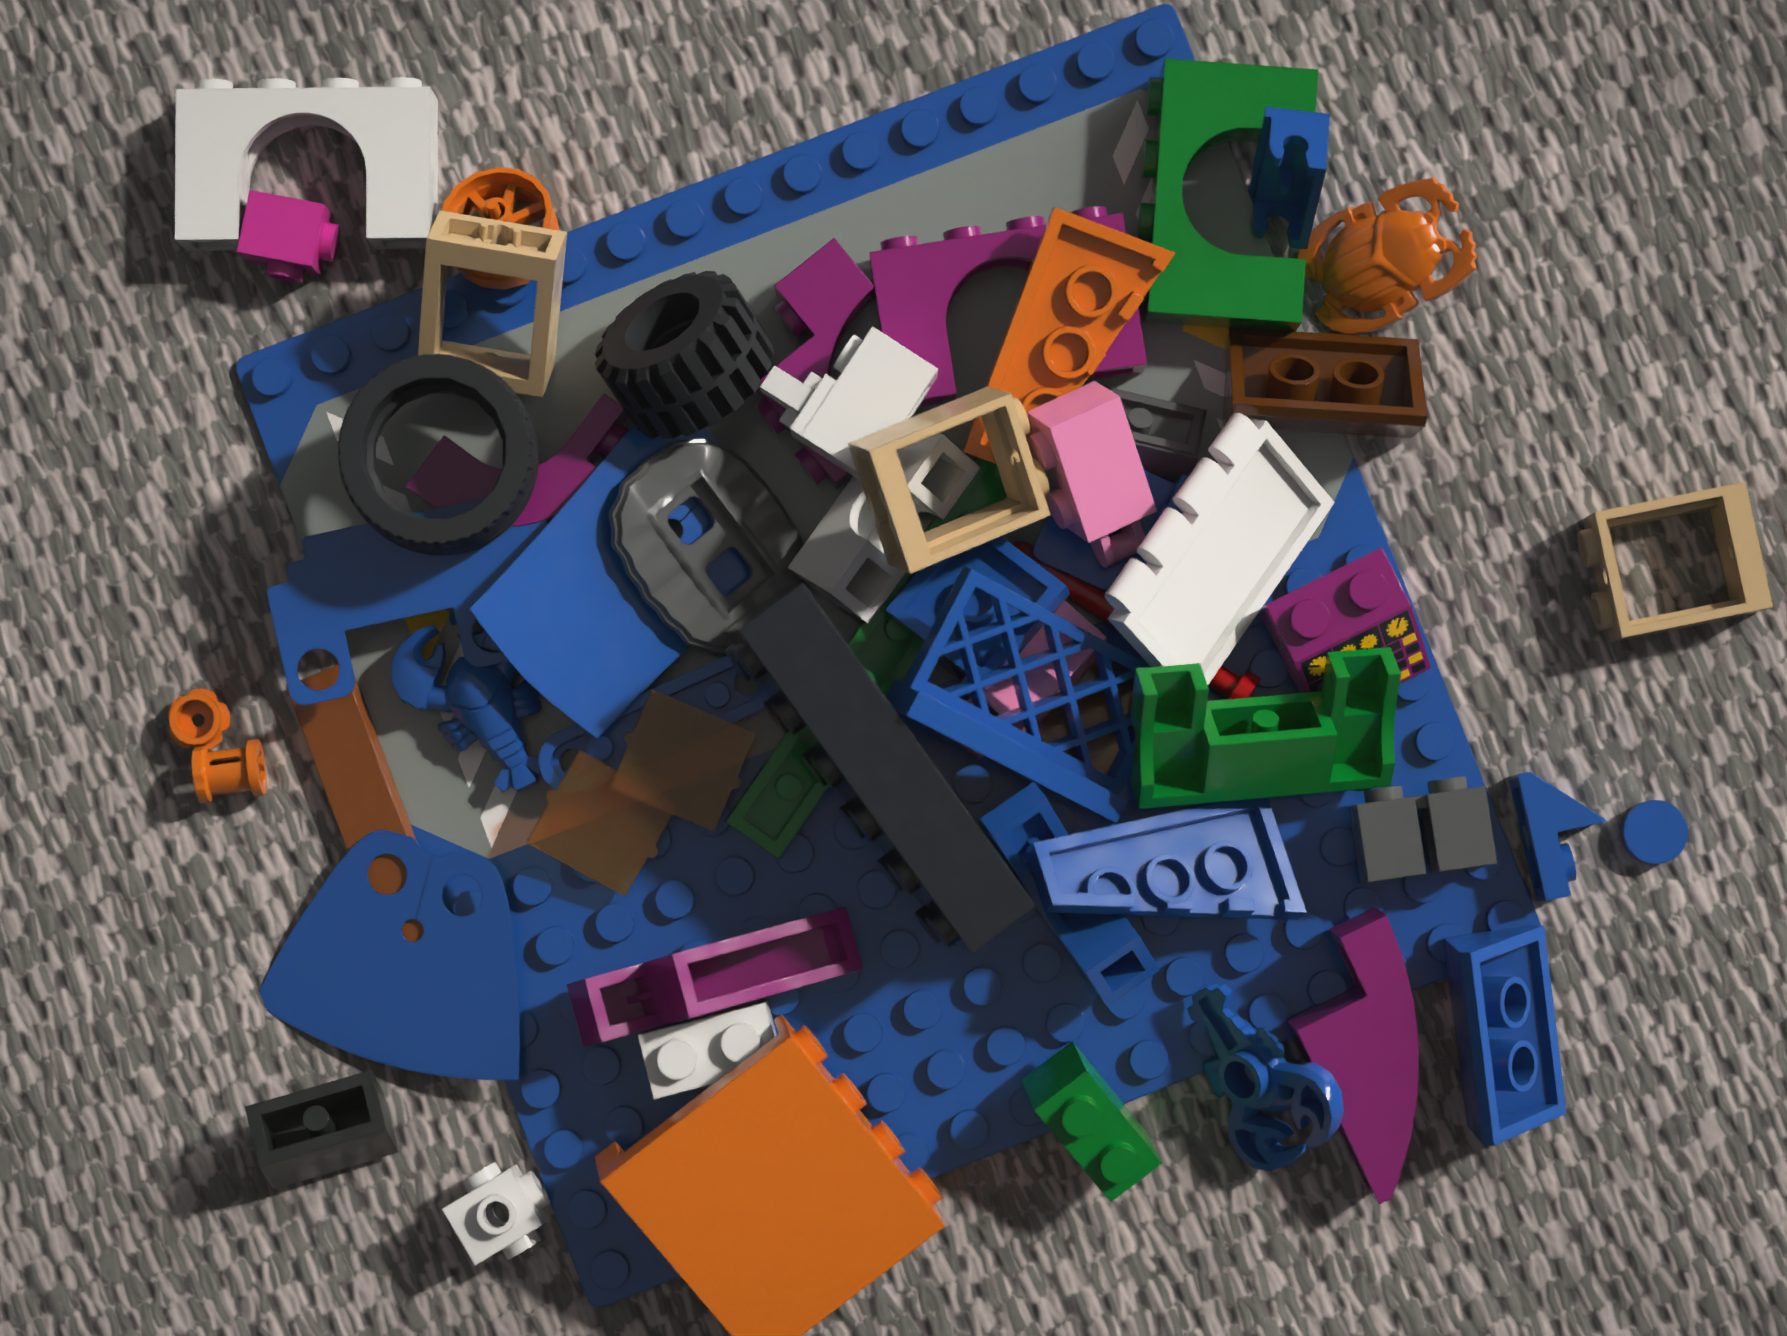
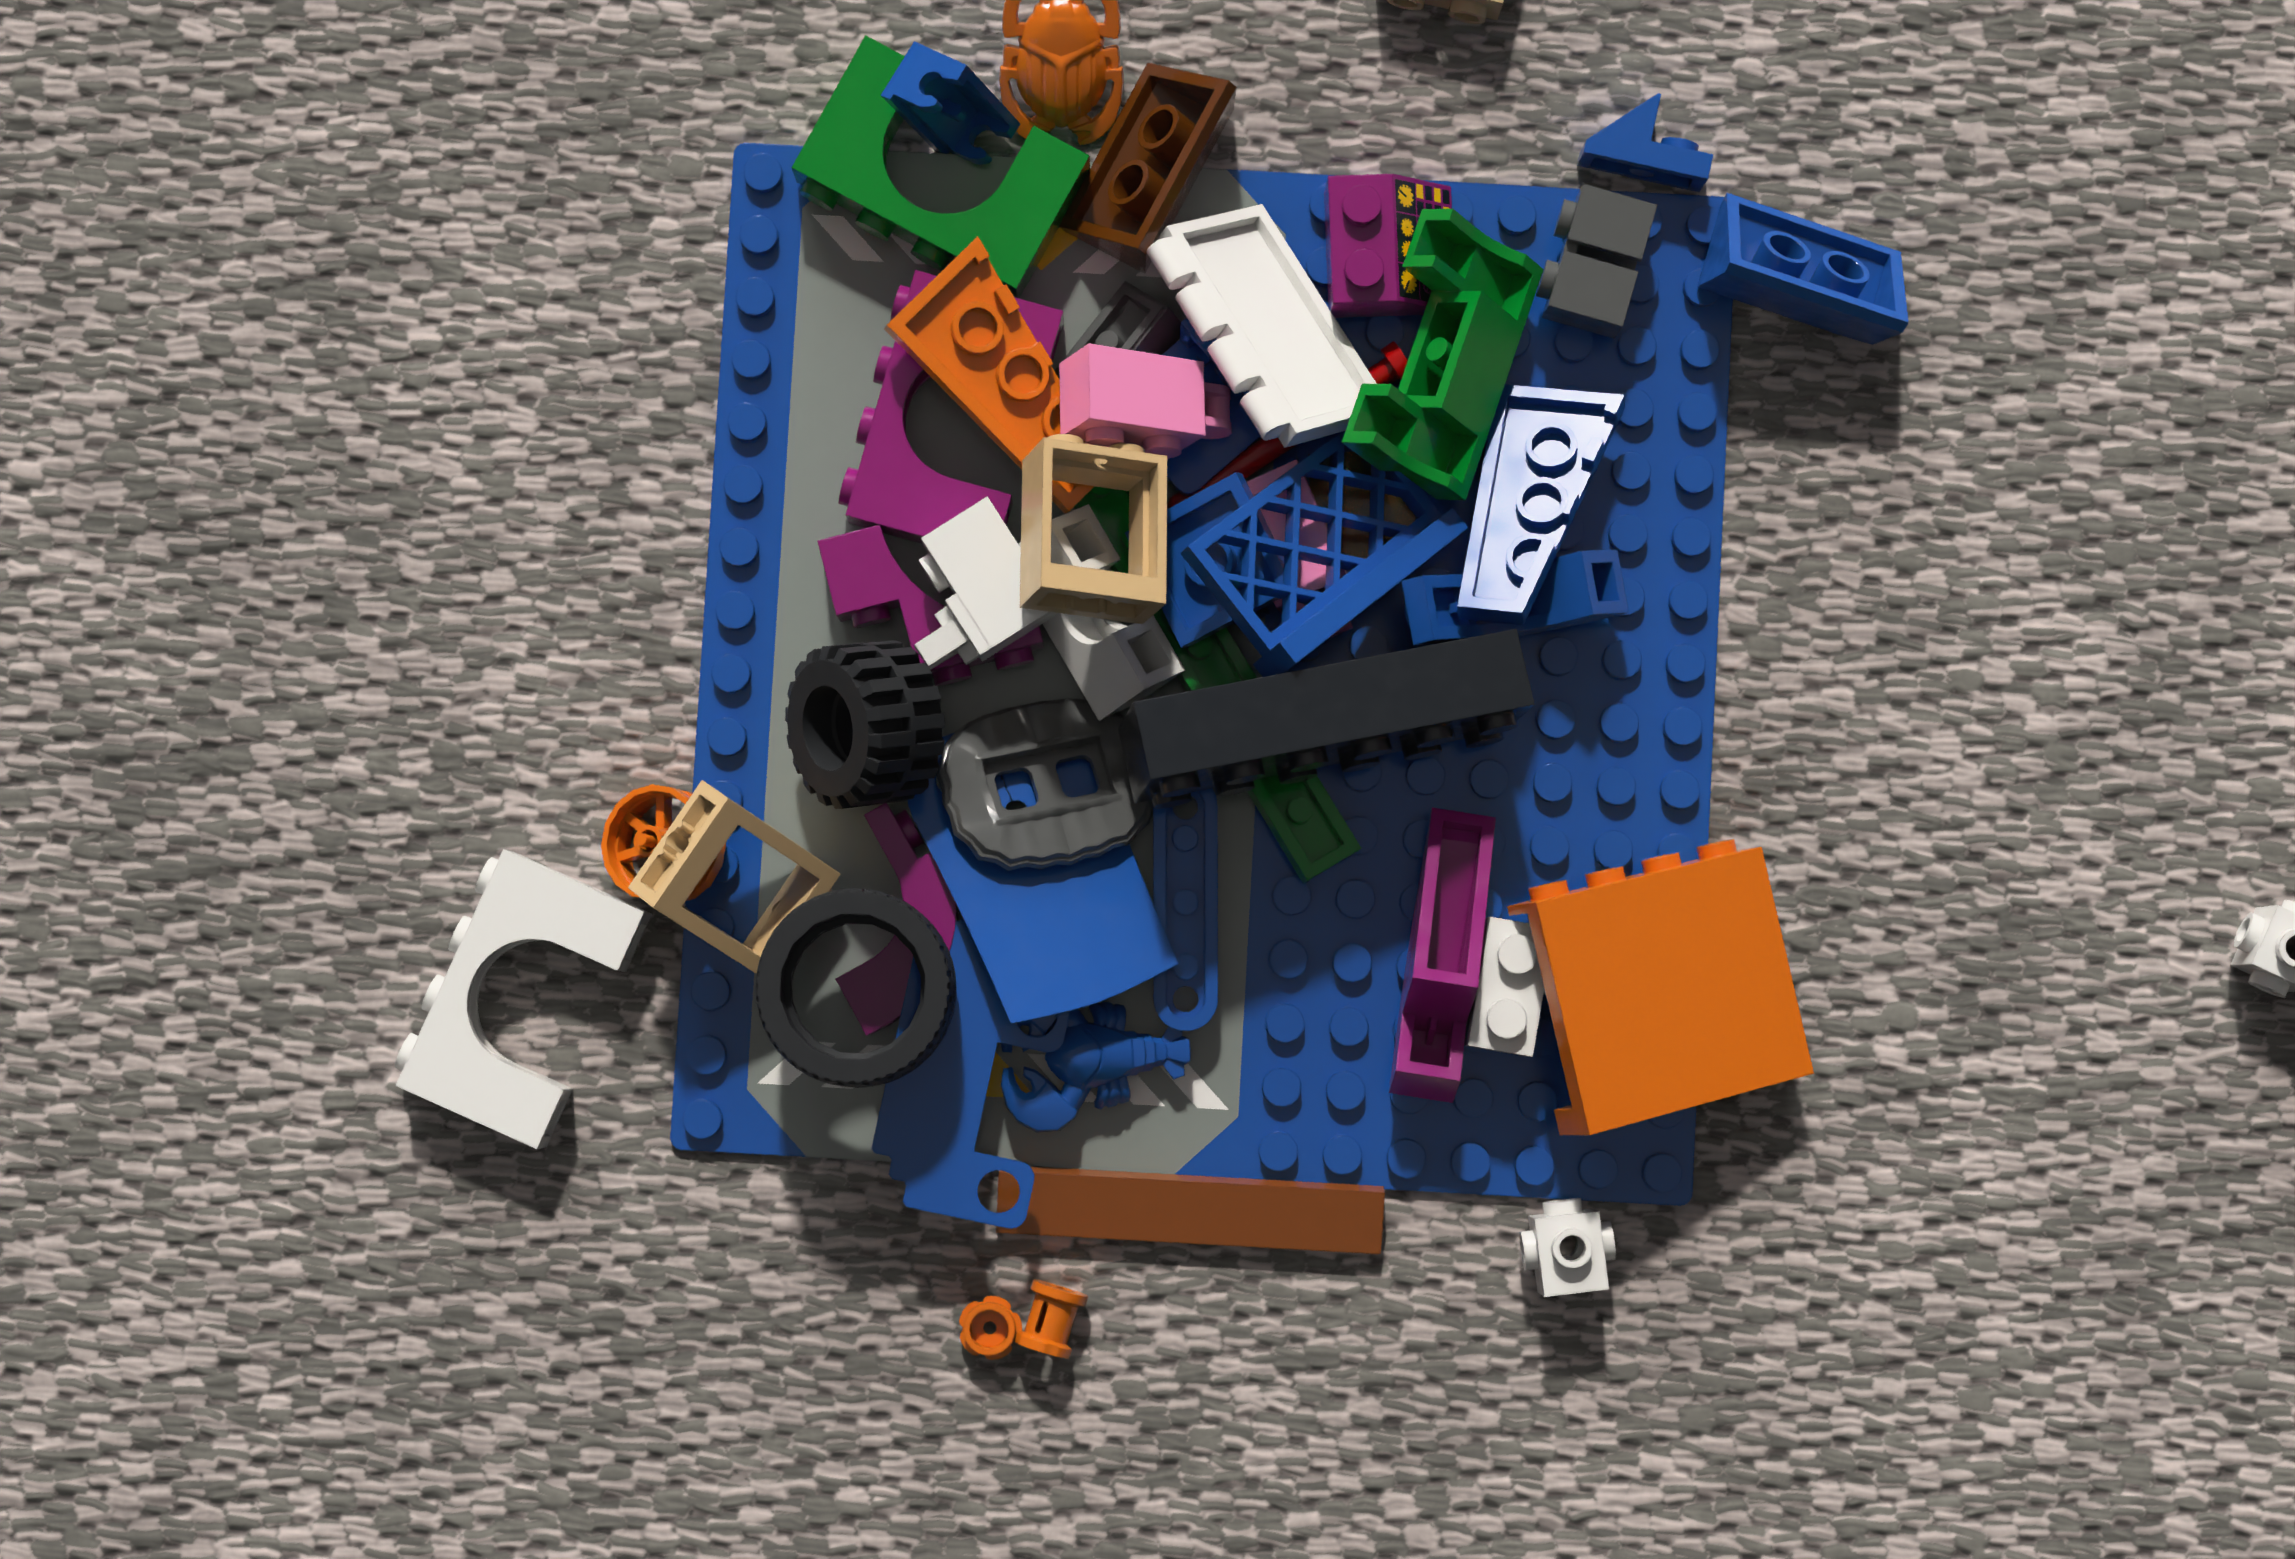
camera: 70 degrees left, 0 degrees up
(287, 236) = (579, 1044): dark pink brick -> none
(321, 1129) = (1420, 1377): pearl dark grey brick -> none
(412, 1005) = (1344, 1241): blue piece -> none
(597, 826) = (1255, 995): clear orange piece -> none
(682, 760) = (1232, 895): clear orange piece -> none
(1091, 1121) = (1724, 673): green brick -> none
(1261, 1079) = (1750, 506): blue animal -> none
(1370, 1049) = (1770, 399): magenta slope -> none
(1653, 832) = (1685, 59): blue tile -> none

